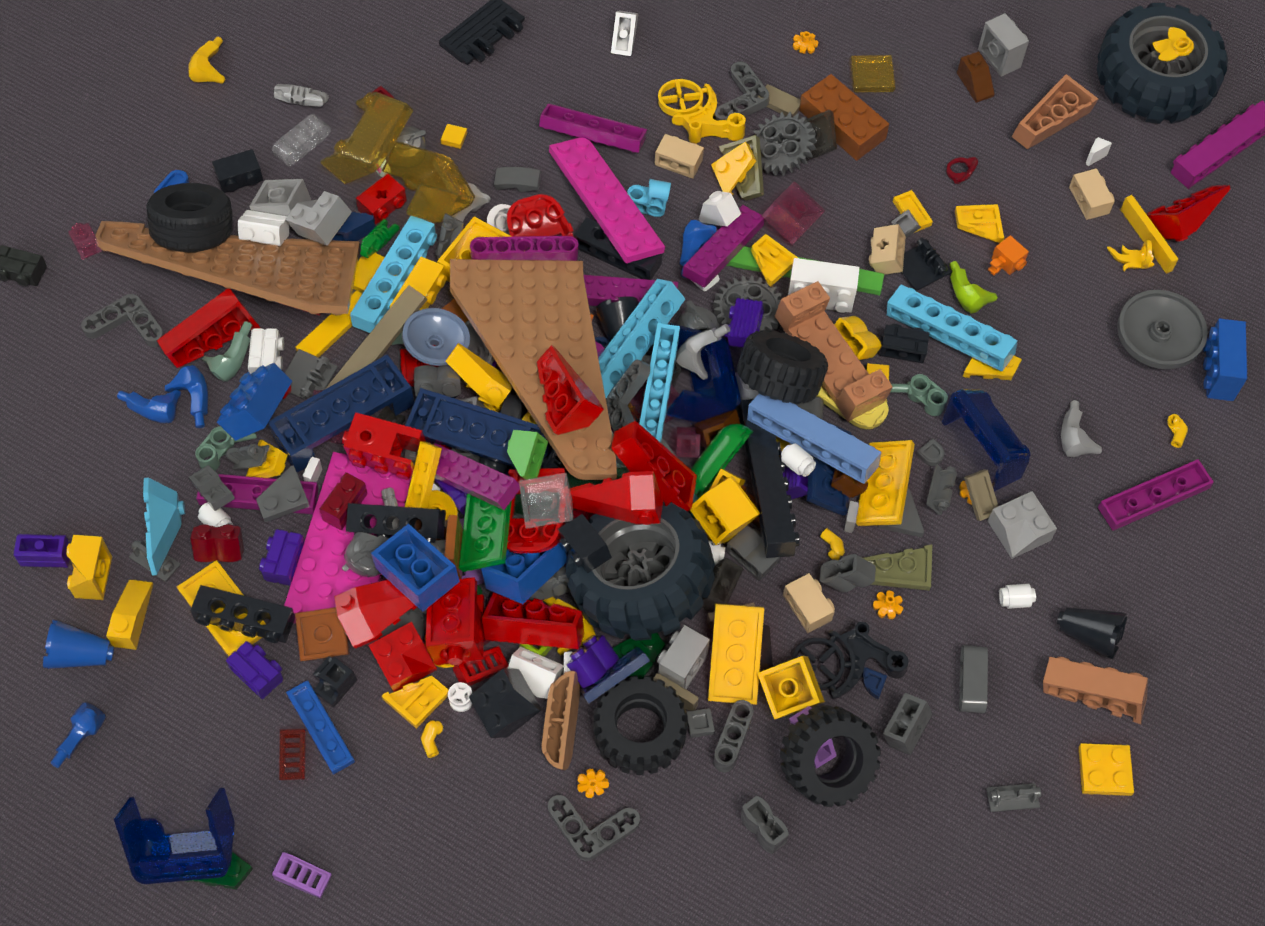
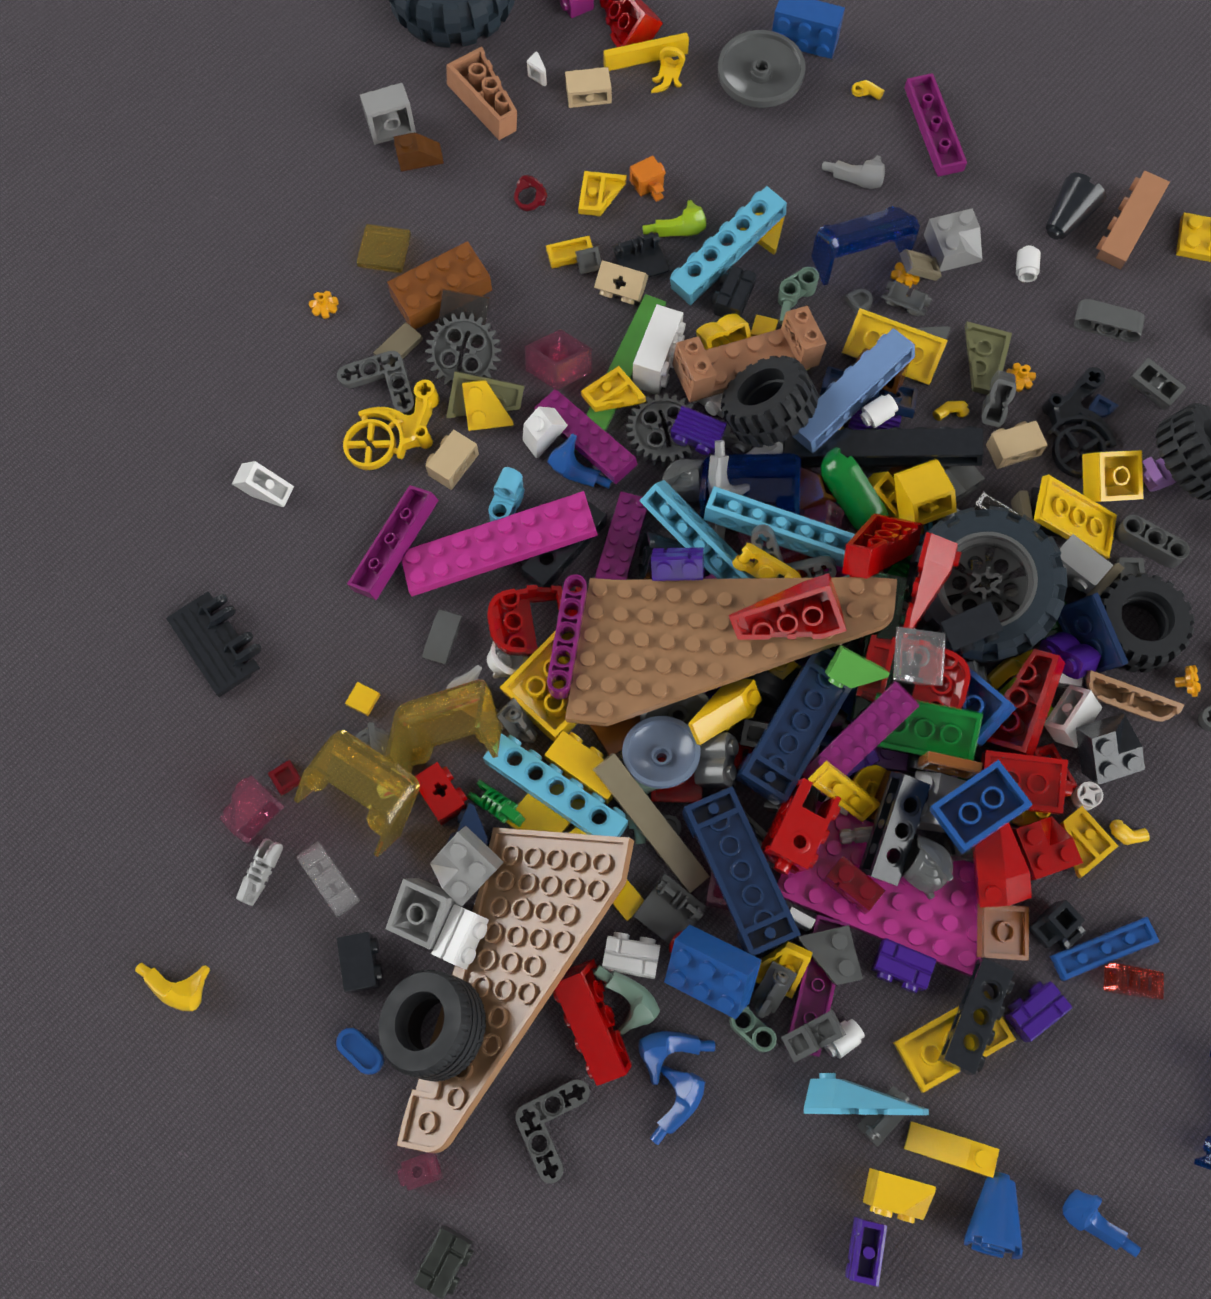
camera: 75 degrees left, 10 degrees up
(217, 543) = (880, 1042): dark red brick -> none
(346, 75) = (250, 809): none -> clear pink slope
(603, 315) = (677, 564): none -> dark purple brick
(616, 382) = (765, 564): none -> yellow plate
(851, 517) = (927, 385): light grey tile -> none

